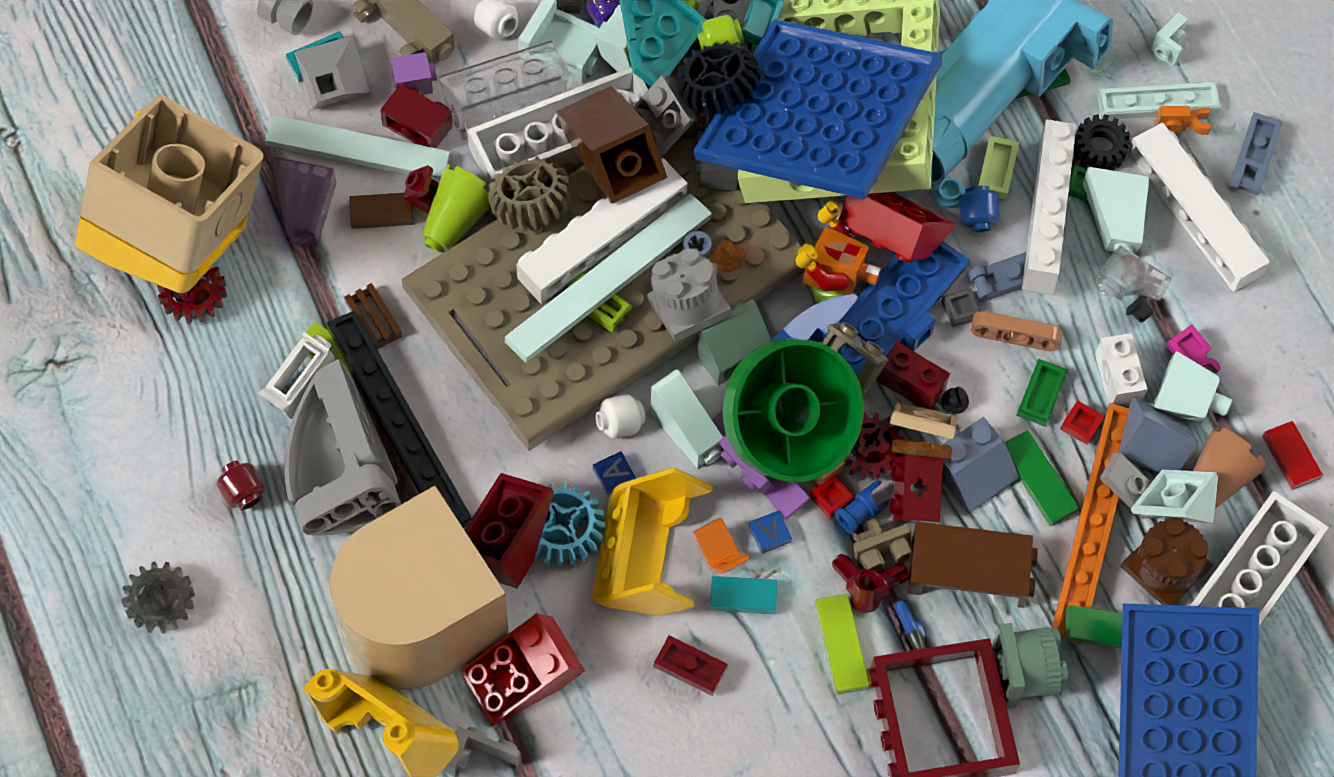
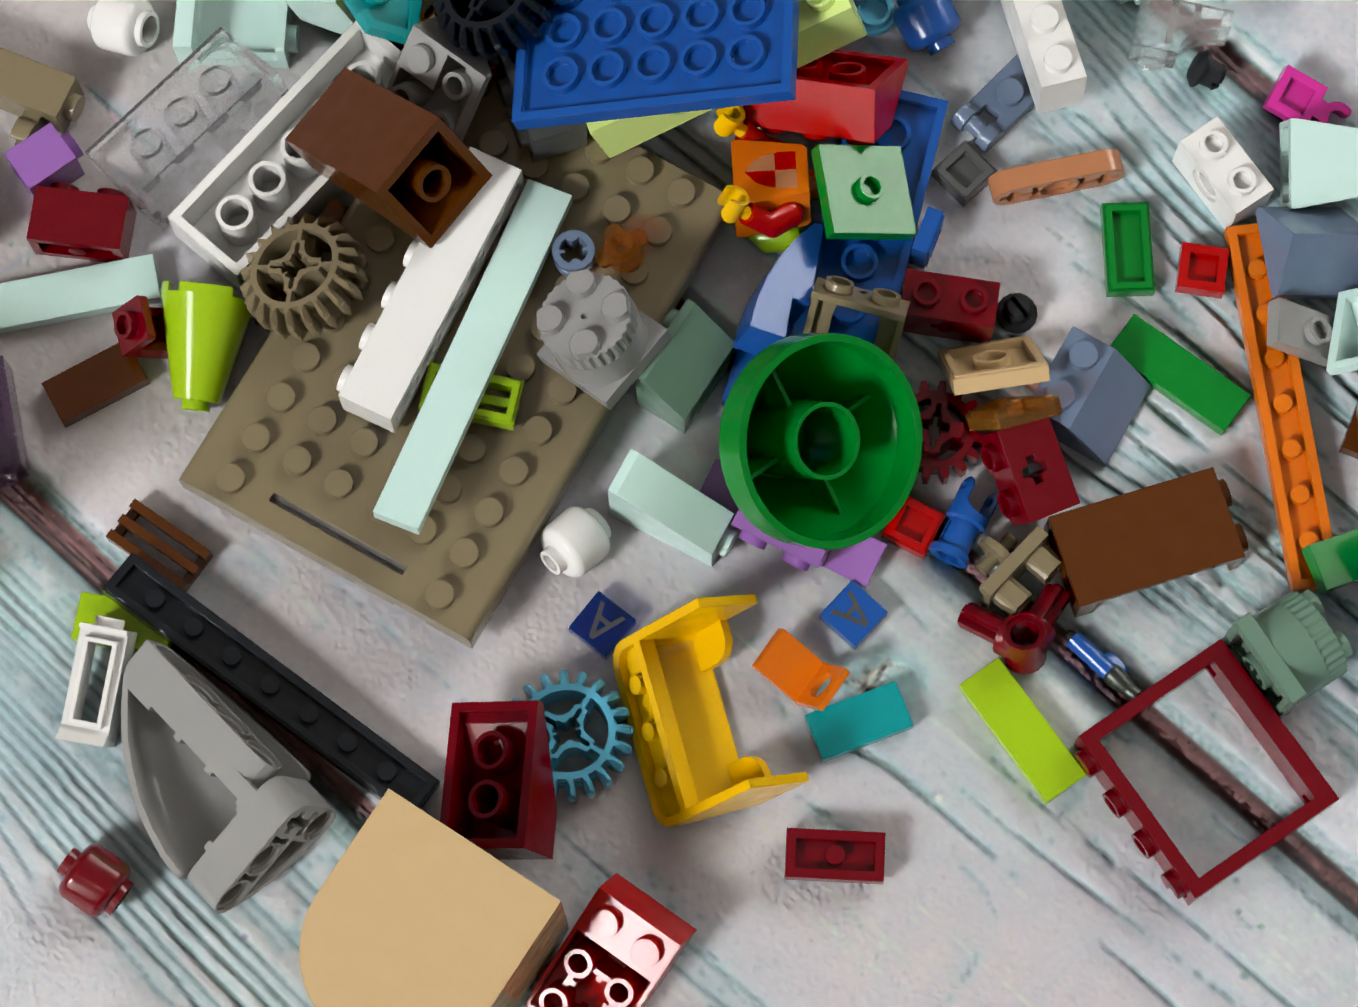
camera: 20 degrees left, 10 degrees up
(891, 287) = (863, 192): none -> plate

